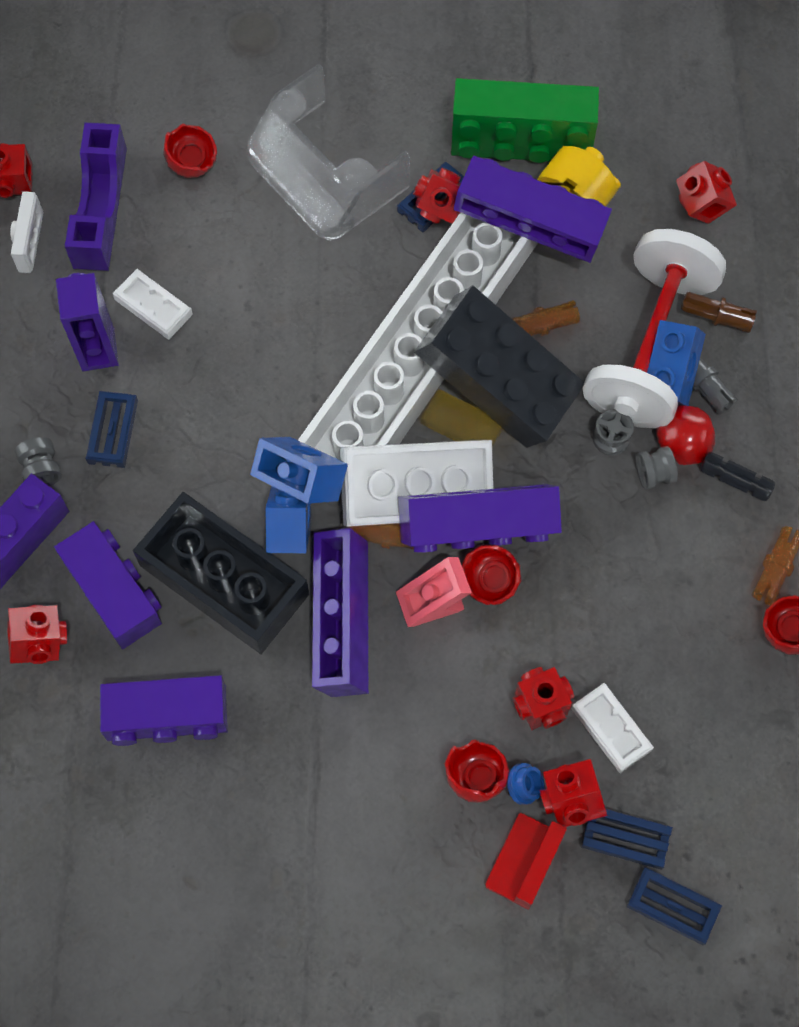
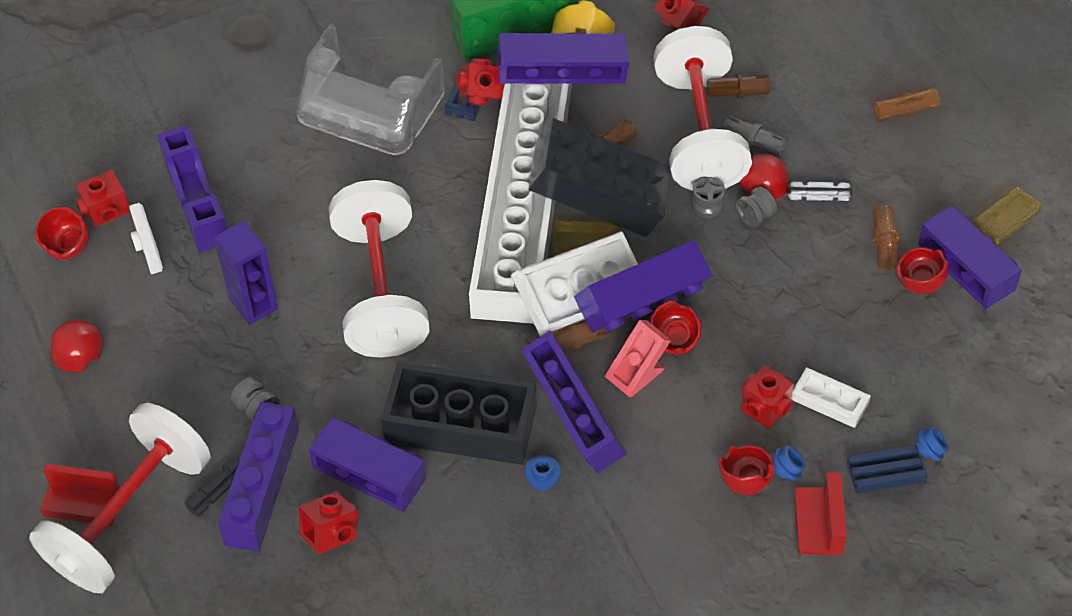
camera: 25 degrees left, 15 degrees down
(107, 456) = (307, 375): dark blue tile -> none
(152, 304) = (289, 250): white plate -> none
(163, 709) = (468, 533): dark purple brick -> none
(189, 151) = (251, 129): red hair -> none
(248, 306) = (384, 323): none -> white piece
(277, 684) = (545, 480): none -> blue plate
(287, 523) = (493, 346): blue brick -> none
(299, 469) = (487, 301): blue brick -> none
(573, 794) = (831, 449): red brick -> none
(664, 919) = (951, 506): dark blue tile -> none
(677, 357) = (727, 113): blue brick -> none
(688, 833) = (932, 443): none -> blue plate

